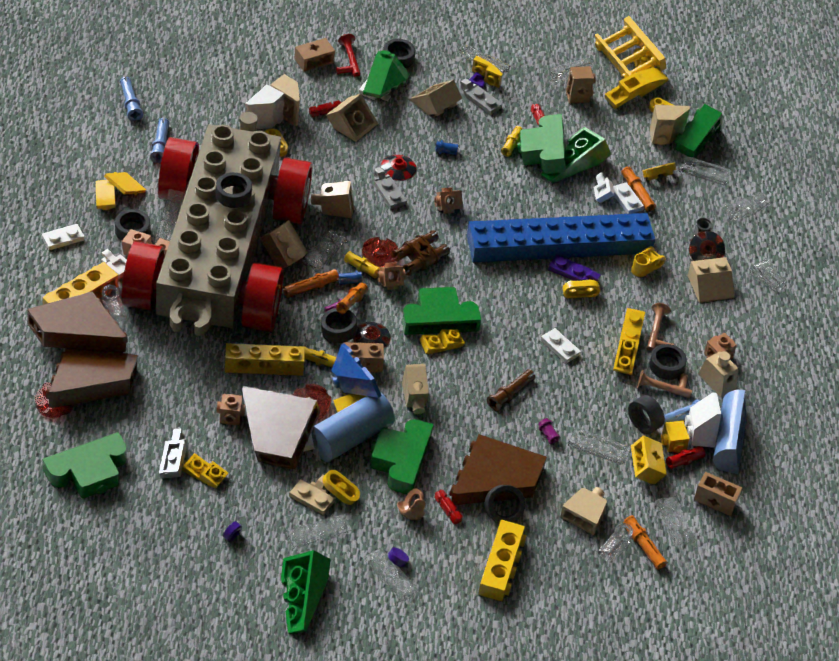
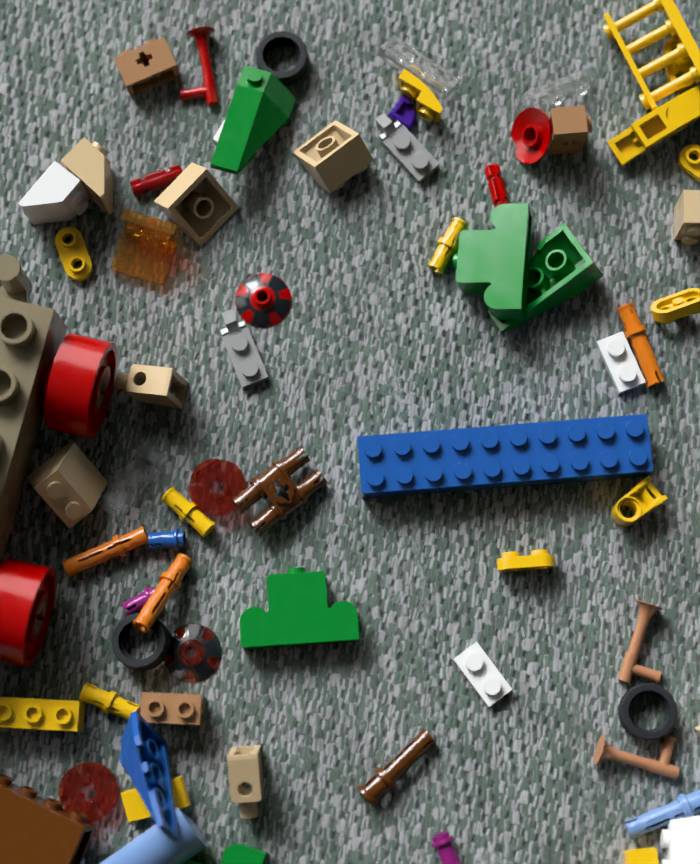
camera: 15 degrees right, 30 degrees up
(323, 135) = (146, 247): none -> clear orange bracket
(398, 275) = (229, 543): nougat brick -> none
(446, 340) = (299, 666): yellow slope -> none
(448, 148) = (341, 262): blue pin -> none
(454, 197) = (332, 381): nougat brick -> none
(558, 88) = (531, 135): none -> red dish
(572, 270) = (518, 518): dark purple hinge -> none
(604, 189) = (585, 346): white plate -> none
(629, 341) = (589, 676): yellow slope -> none
(652, 409) = (599, 833): black tyre -> none

